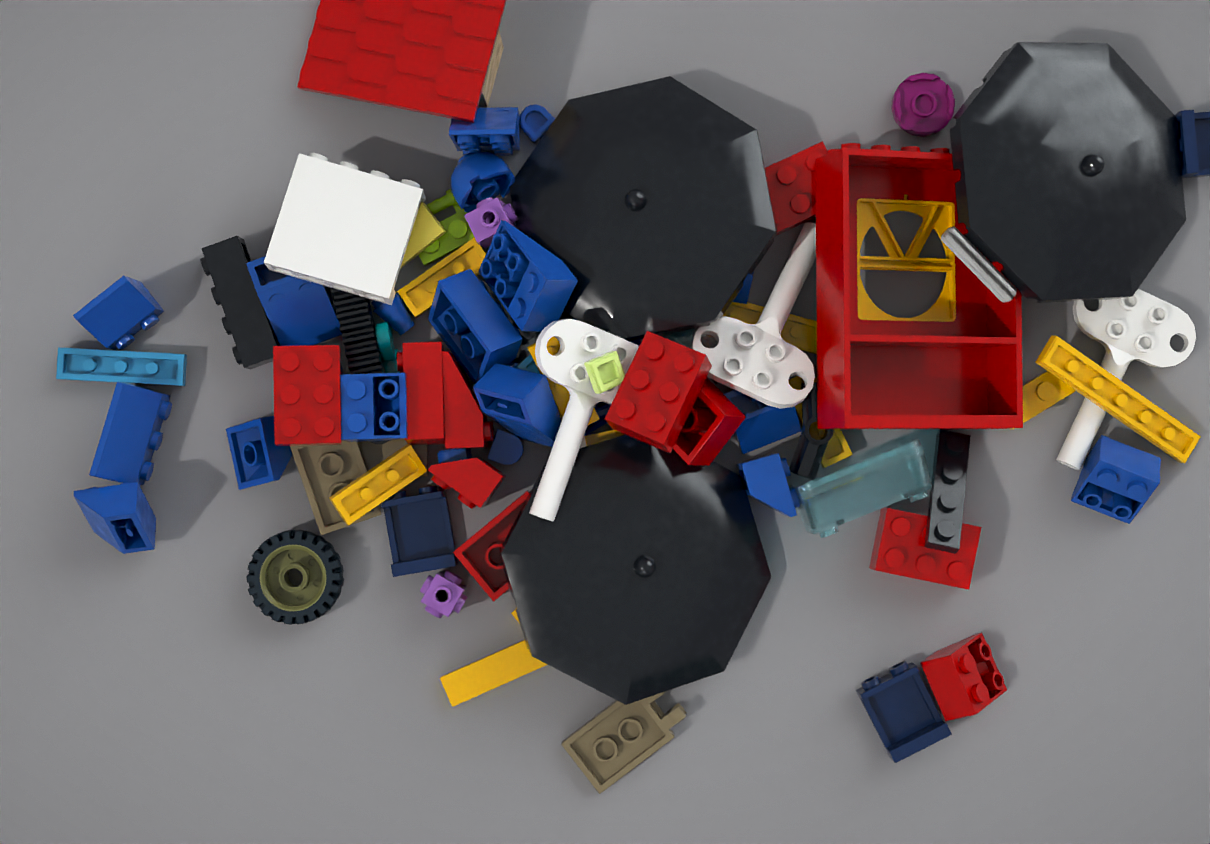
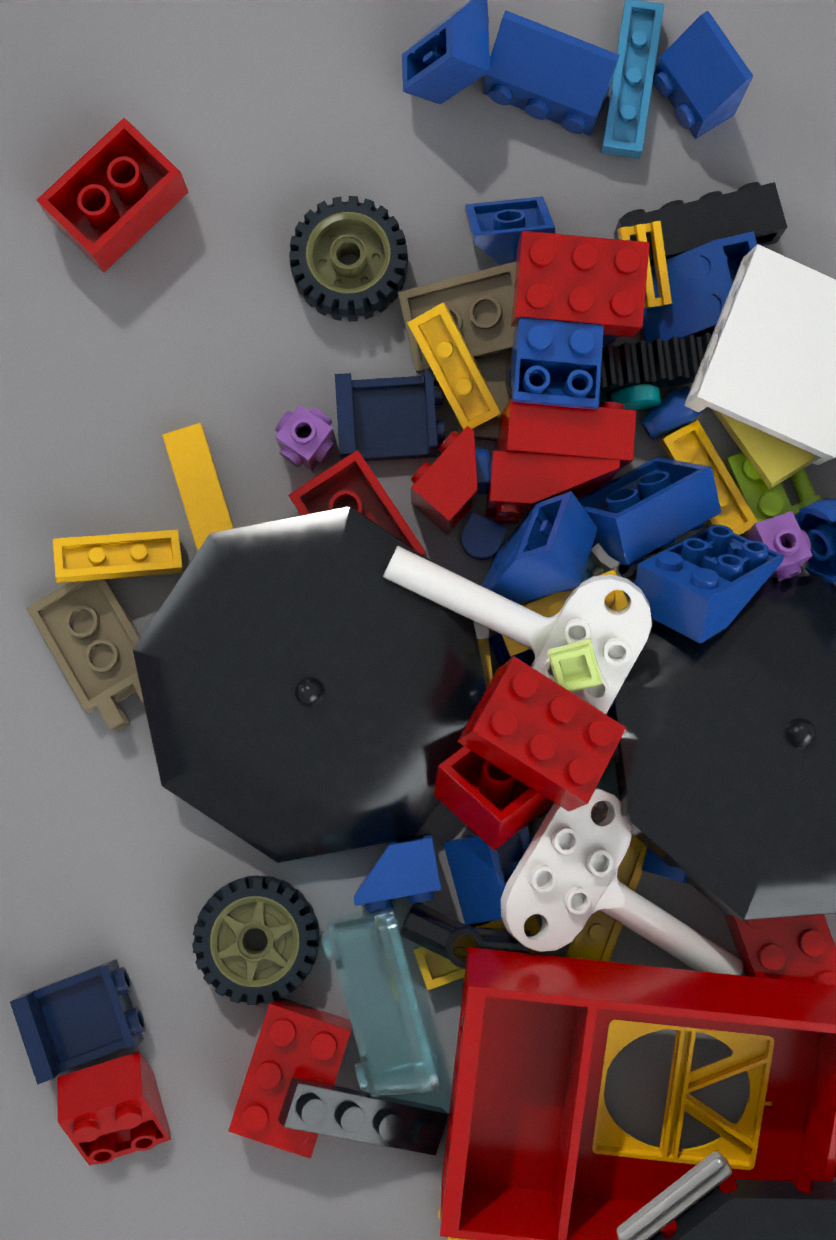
camera: 95 degrees right, 5 degrees down
(254, 351) = (659, 261): none -> yellow tile
(265, 769) = (113, 195): none -> red brick
(522, 355) = (602, 561): none -> light grey piece
(552, 728) = (117, 556): none -> yellow plate
(854, 589) = (230, 961): none -> wheel

